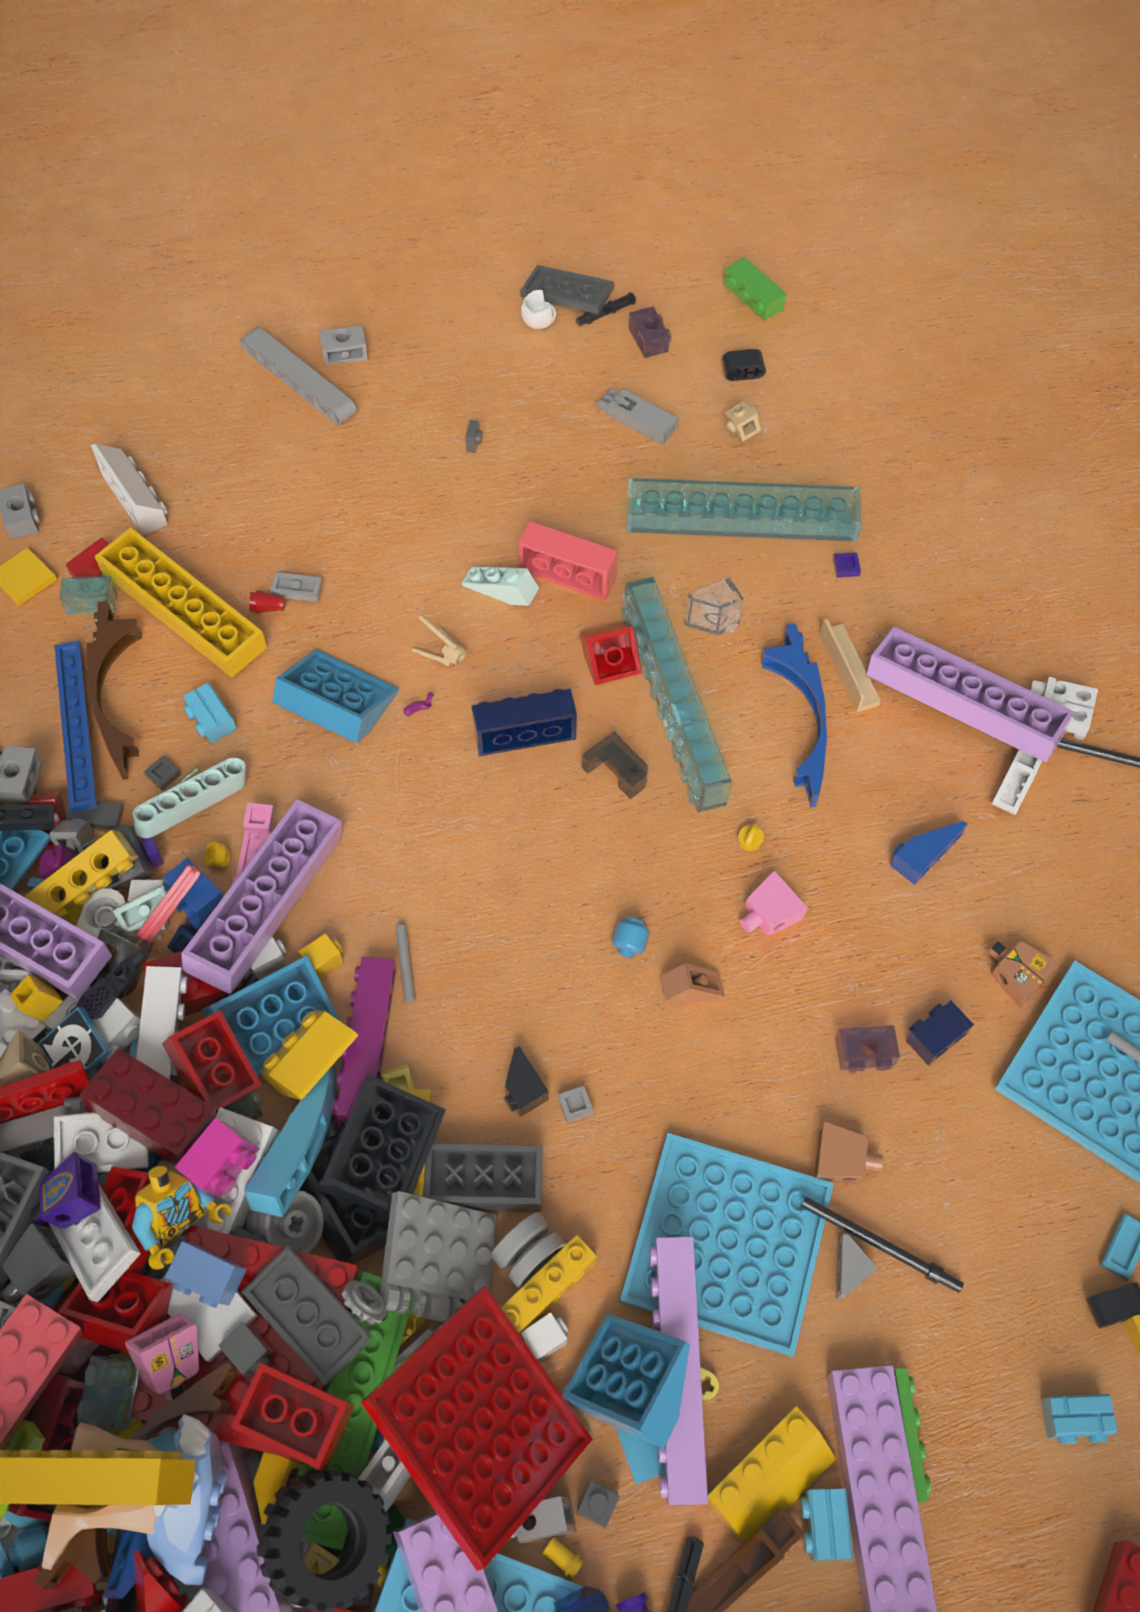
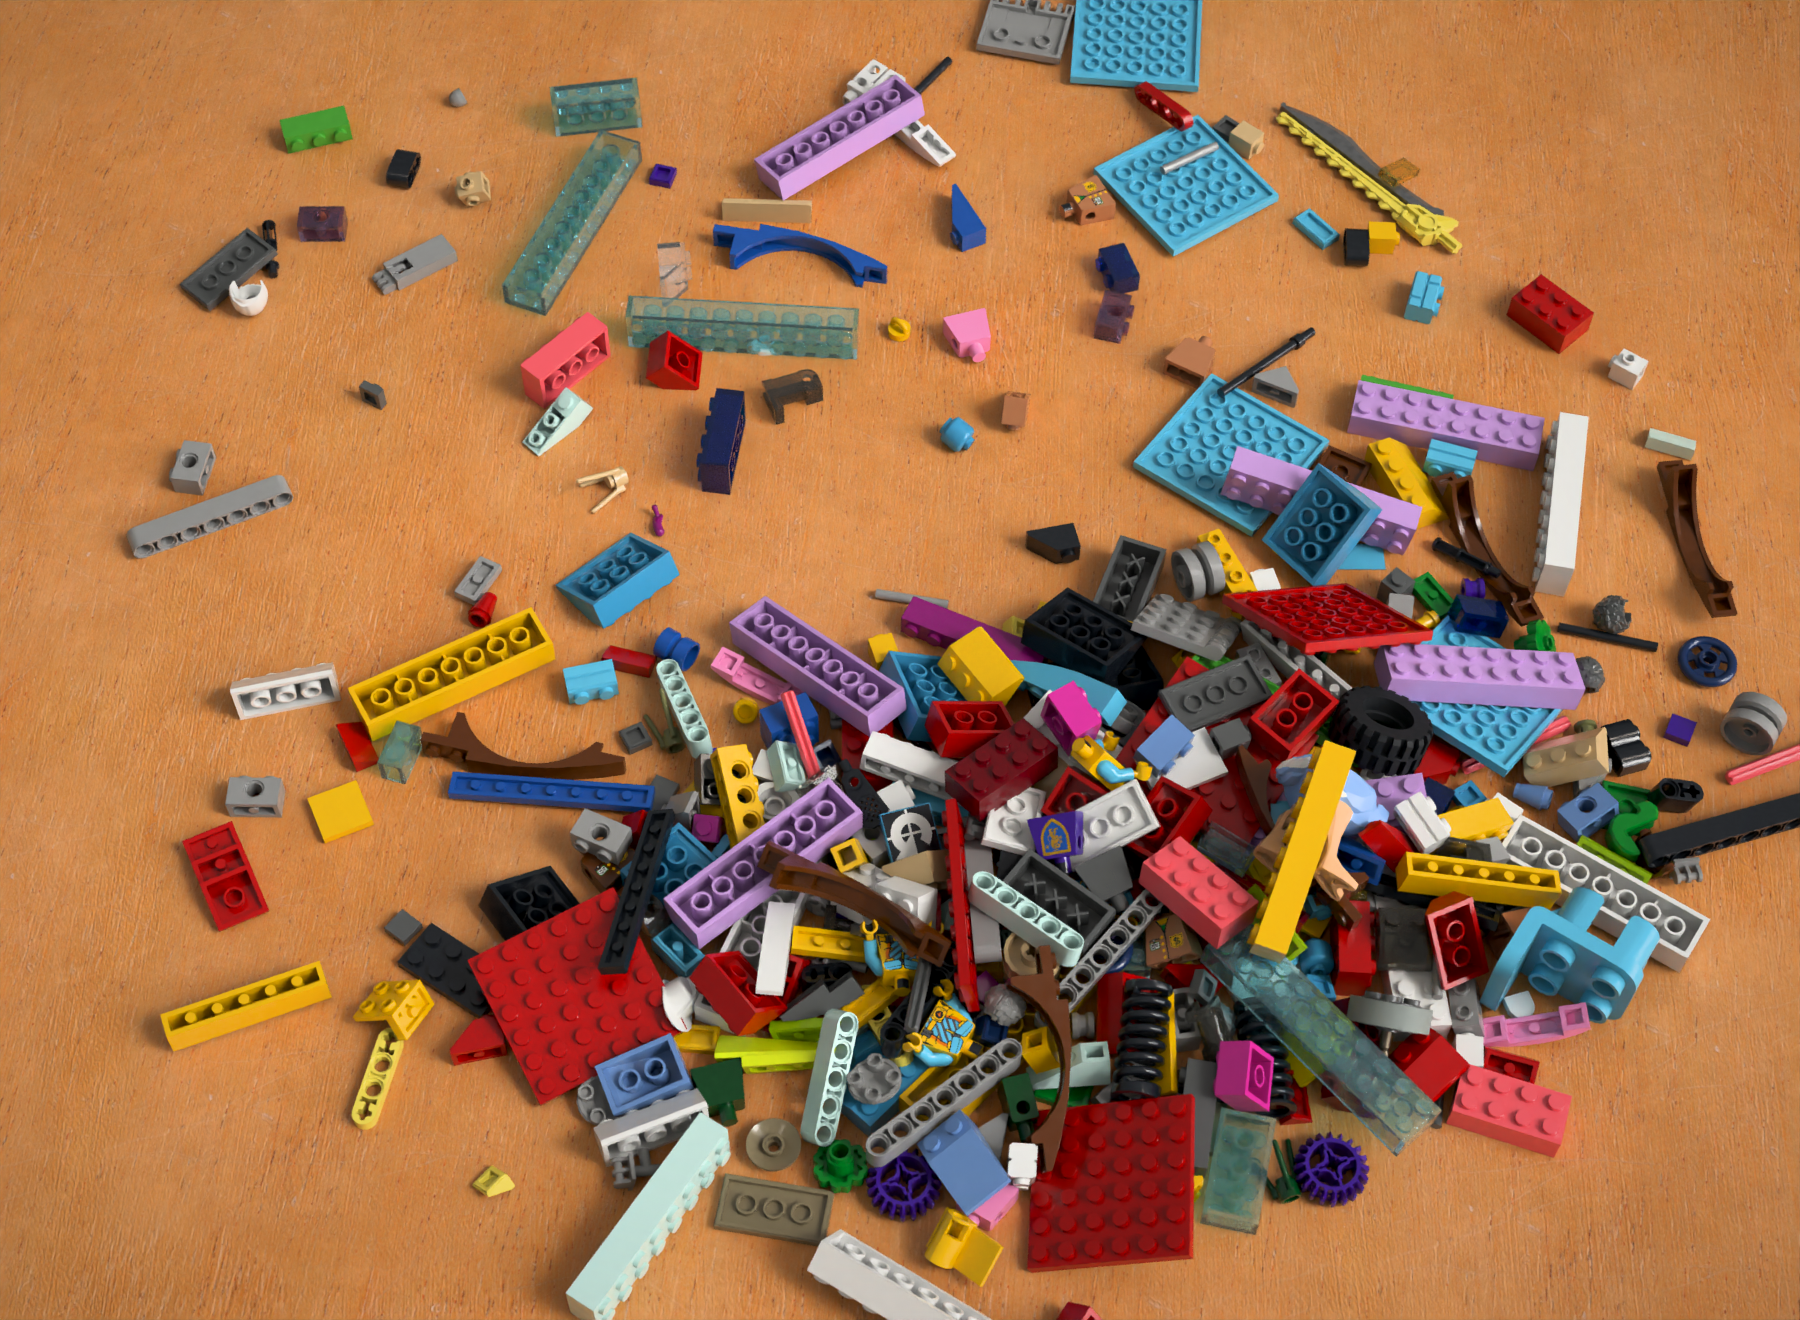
camera: 70 degrees left, 5 degrees down
(166, 1355) = (1227, 795): bright pink torso -> none
(247, 736) = (630, 661): none -> red slope
(266, 771) = (672, 646): none -> blue wheel
(364, 1302) = (1218, 657): light grey gear -> none
(575, 1104) = (1086, 515): light grey plate -> none
(608, 1558) = (1432, 595): none -> green plate
(752, 1384) = (1346, 465): none -> reddish brown plate
(851, 374) = (457, 98): none -> light grey hinge
(892, 476) = (596, 107): none -> clear light blue brick

